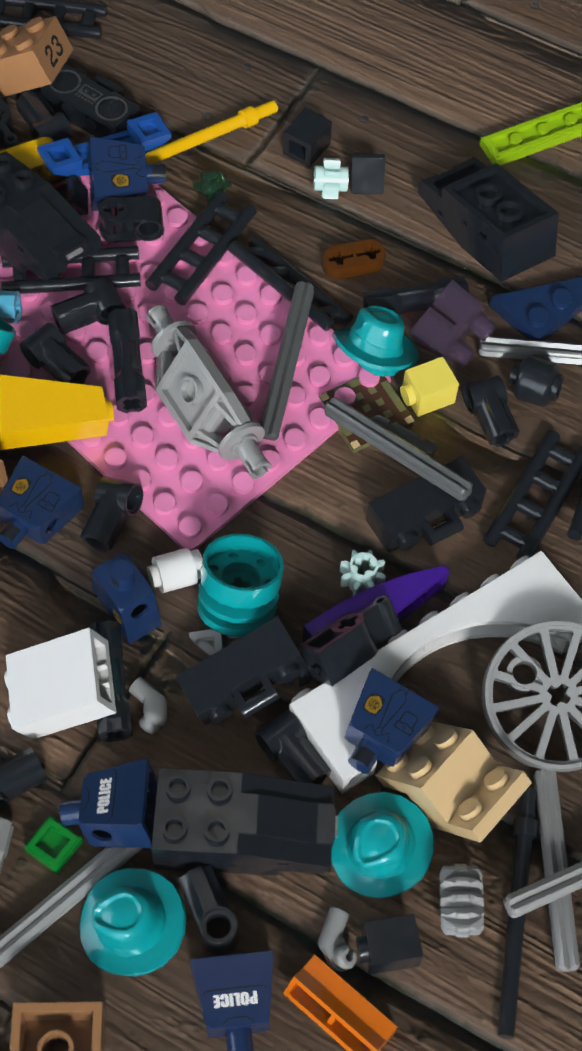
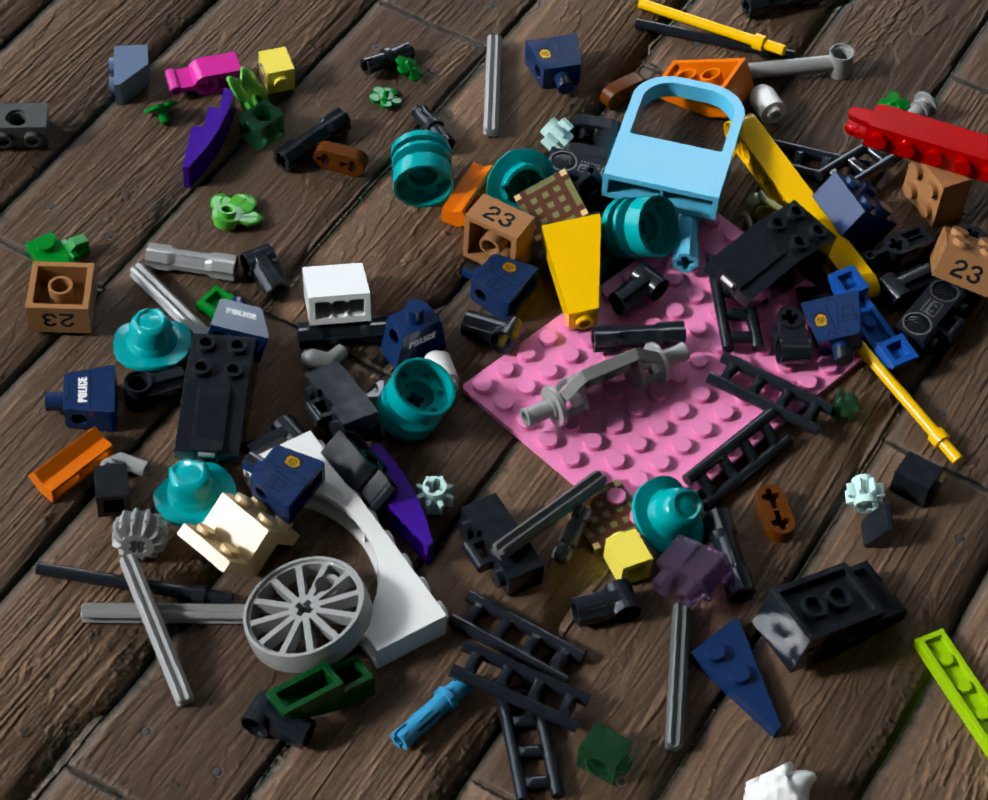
camera: 90 degrees right, 10 degrees down
(87, 308) = (690, 309): black piece -> none
(287, 360) = (643, 443): dark grey axle -> none
(536, 381) = (636, 640): black head -> none

